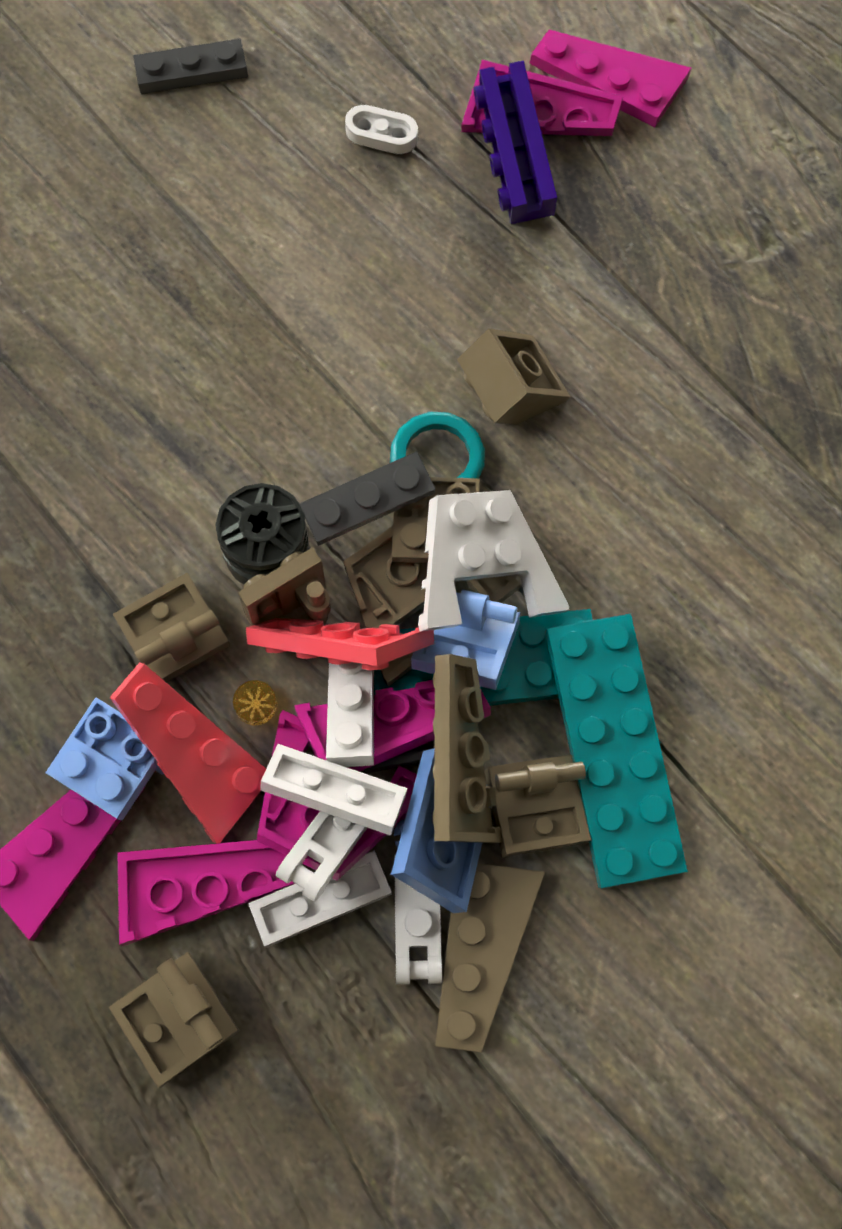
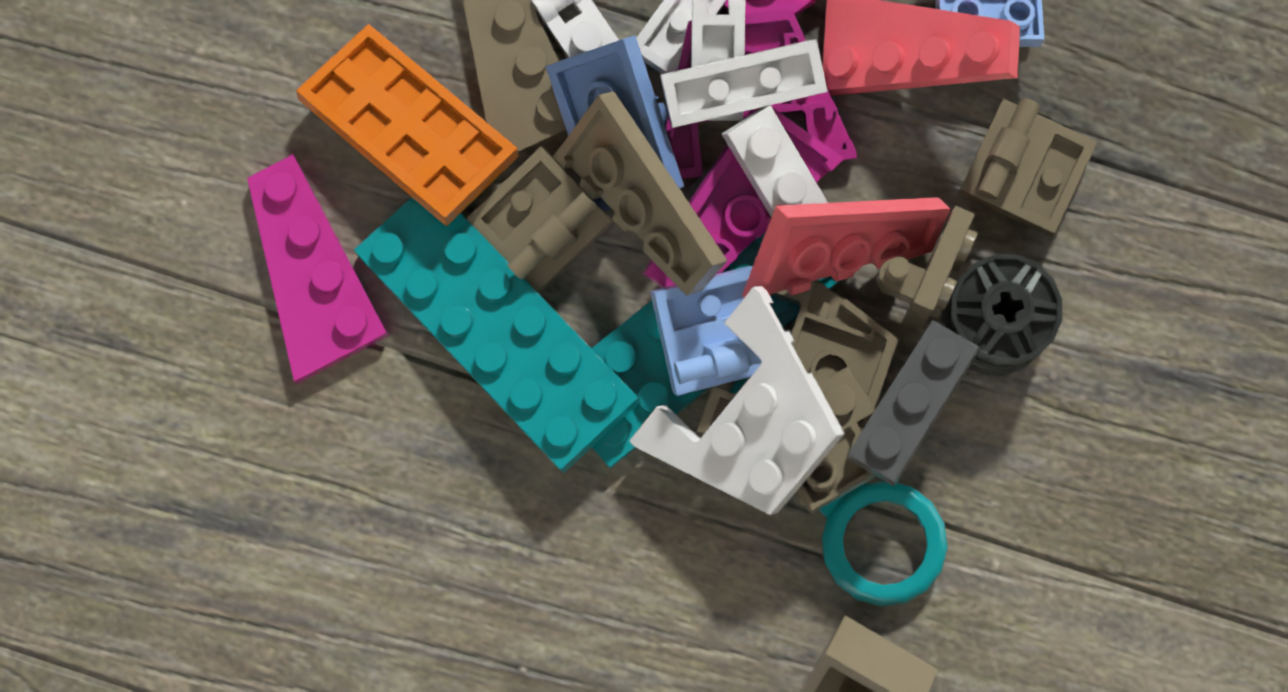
camera: 155 degrees right, 10 degrees up
(254, 702) = (891, 152): clear yellow tile -> none
(597, 940) = (407, 124): none -> orange plate
(728, 873) = (313, 282): none -> dark pink wing

